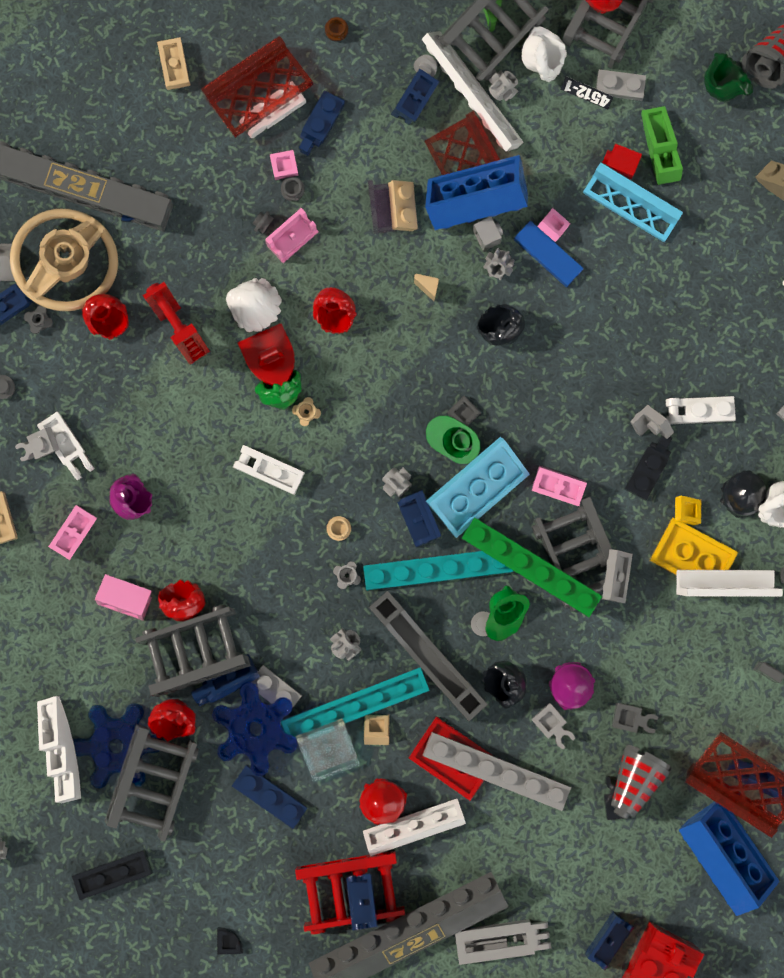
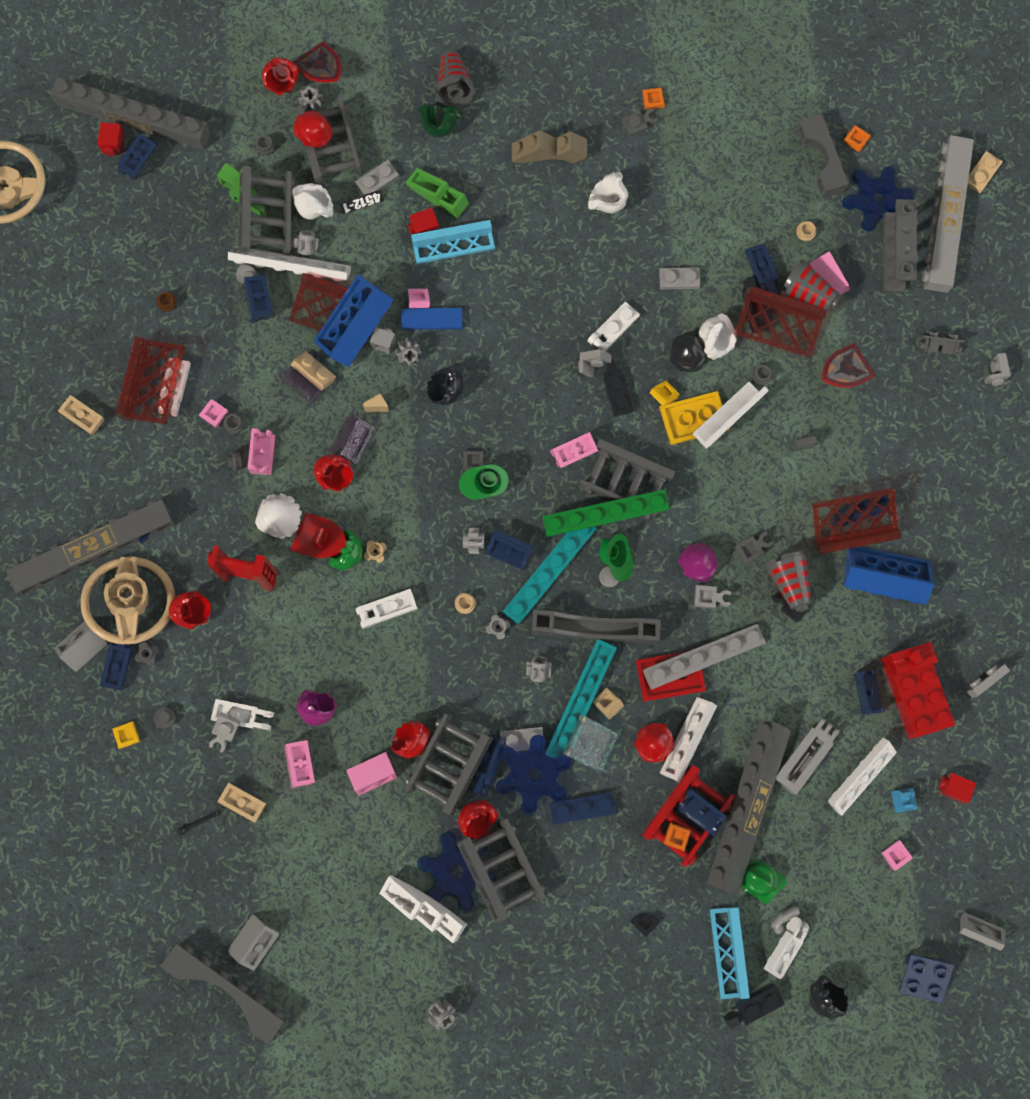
camera: 50 degrees left, 5 degrees down
(112, 874) = (532, 953): black plate -> none
(320, 121) = (211, 366): dark blue hinge -> none
(322, 899) = (677, 837): none -> orange tile
(378, 296) = (352, 439): none -> clear purple panel
(478, 487) = (526, 497): medium azure plate -> none
(505, 683) = (657, 598): black hair -> none
(617, 576) = (662, 469): light grey plate -> none

